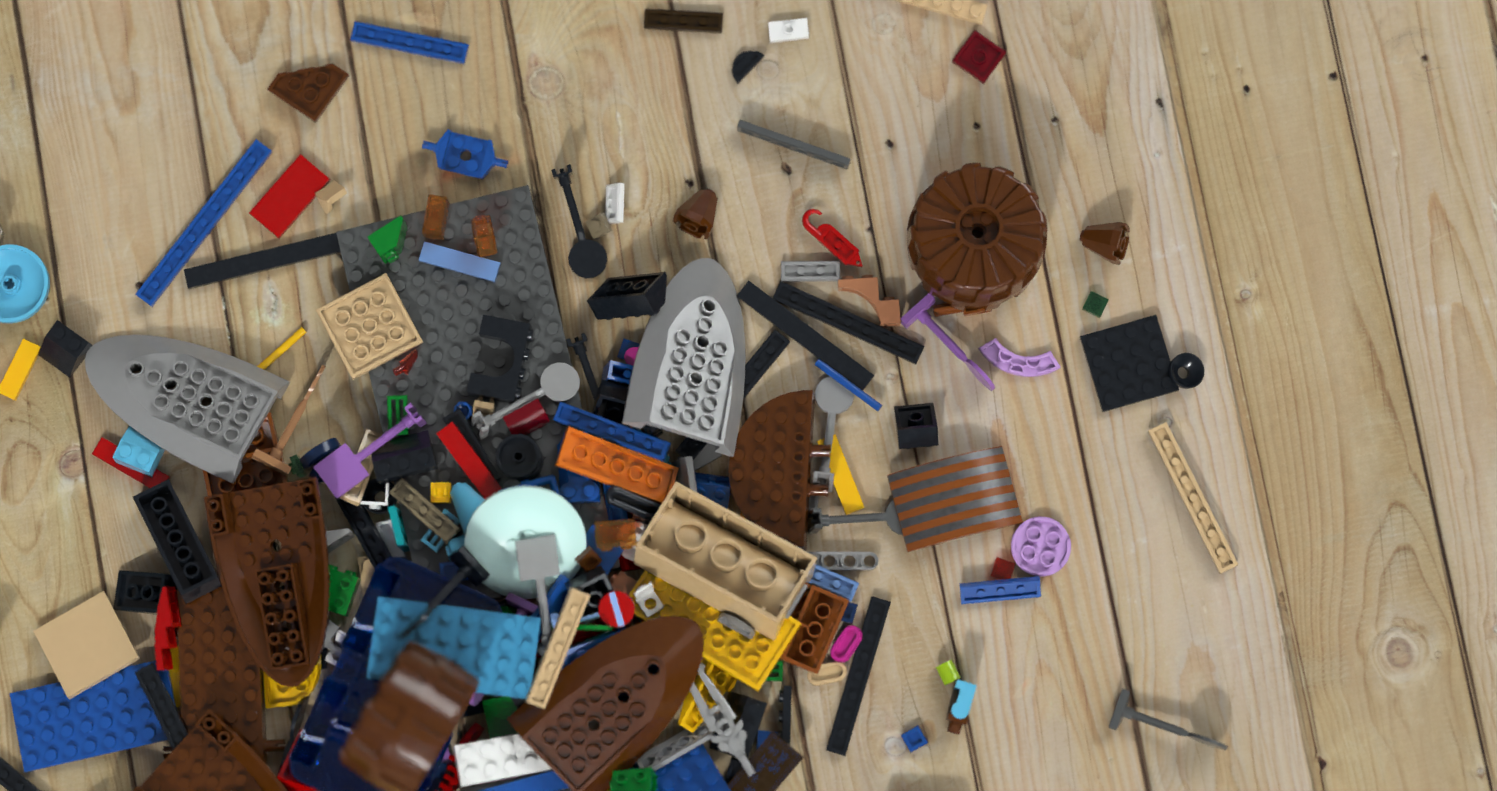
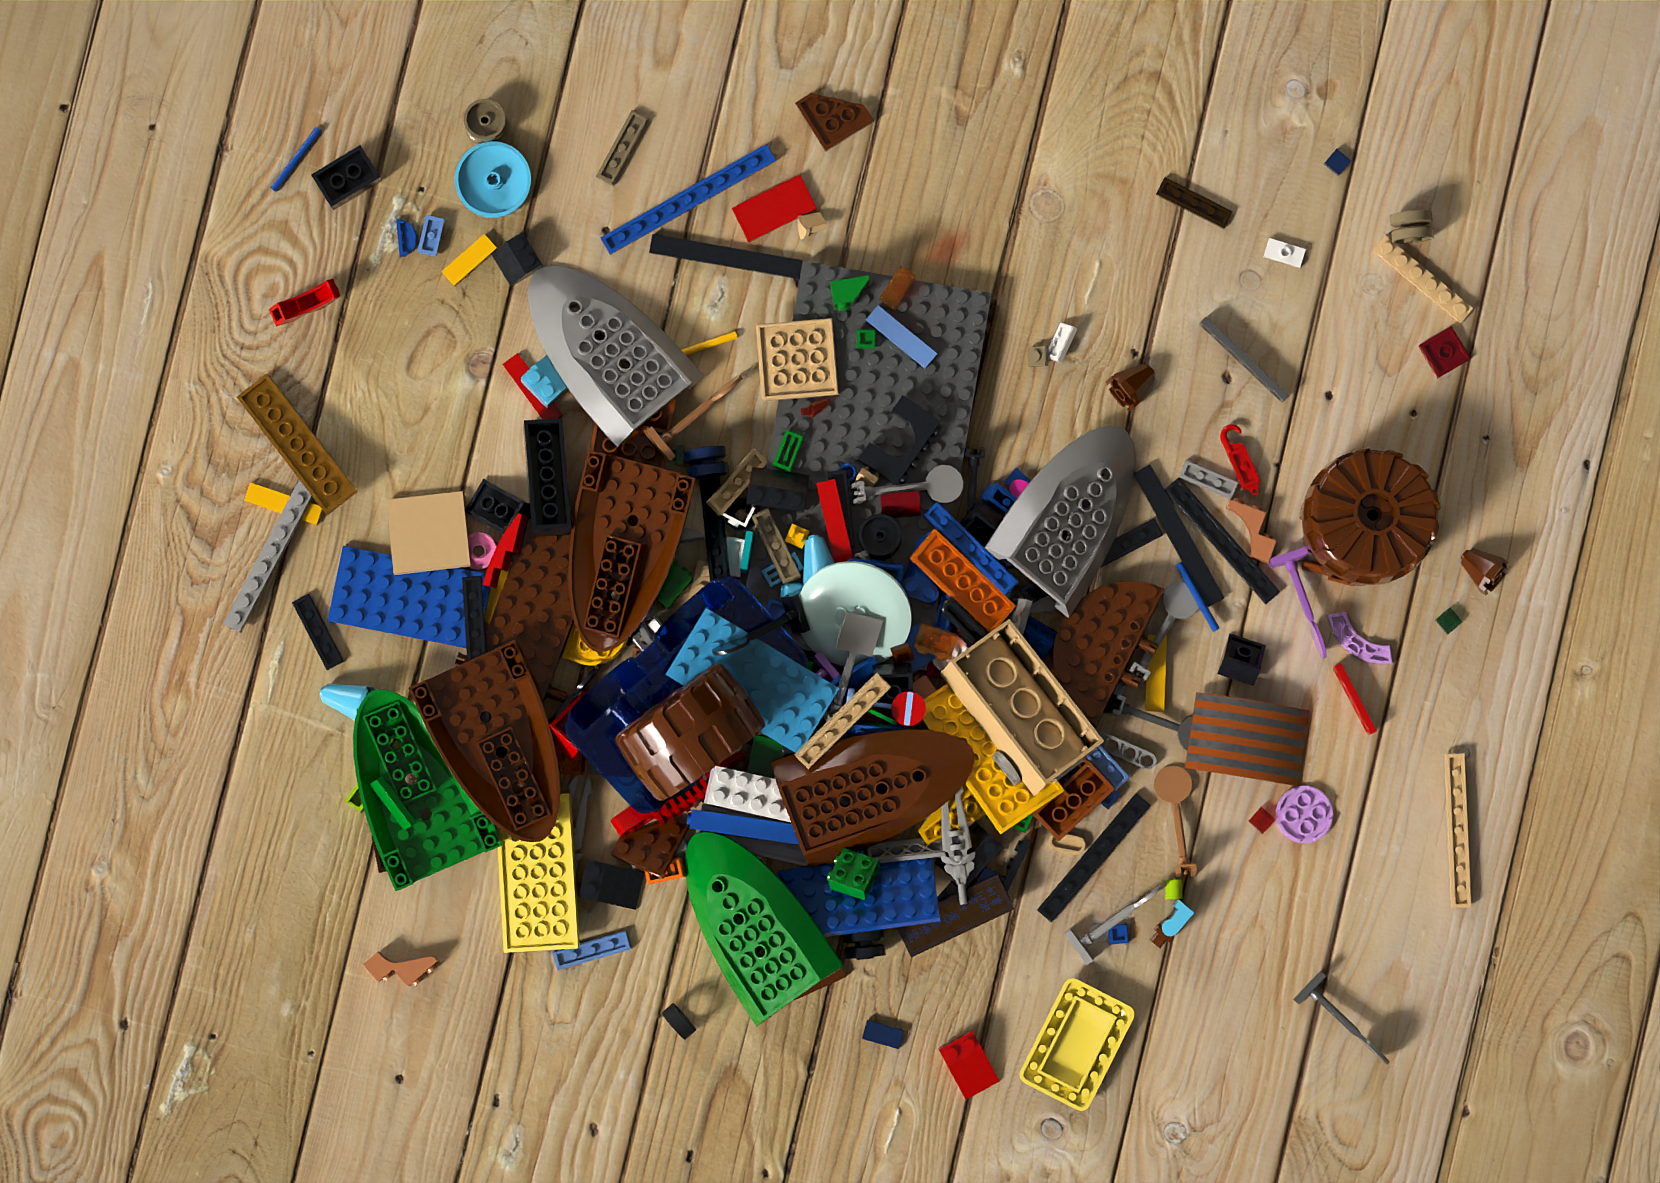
camera: 15 degrees right, 5 degrees up
(121, 202) = (622, 147): none -> dark tan tile
(143, 629) = (489, 545): none -> bright pink tile
(344, 469) = (721, 479): medium lavender piece -> none
(409, 42) = (940, 115): blue tile -> none
(426, 278) = (866, 338): none -> green tile
(452, 145) = (940, 225): blue plate -> none
(483, 235) = (933, 324): clear orange brick -> none
(586, 257) = (1015, 379): black piece -> none
(629, 296) = (1039, 434): black slope -> none
(644, 593) = (939, 704): white bracket -> none
(744, 64) = (1231, 266): black tile -> none
(846, 643) = (1095, 825): dark pink tile -> none
(883, 764) = (1083, 943): none -> light grey piece
(904, 575) = (1174, 786): none -> medium nougat piece
(1000, 590) = (1251, 837): blue tile -> none
(1039, 416) = (1354, 699): none -> red tile
(1128, 363) = (1455, 686): black plate -> none
(1194, 369) = (1510, 718): black piece -> none

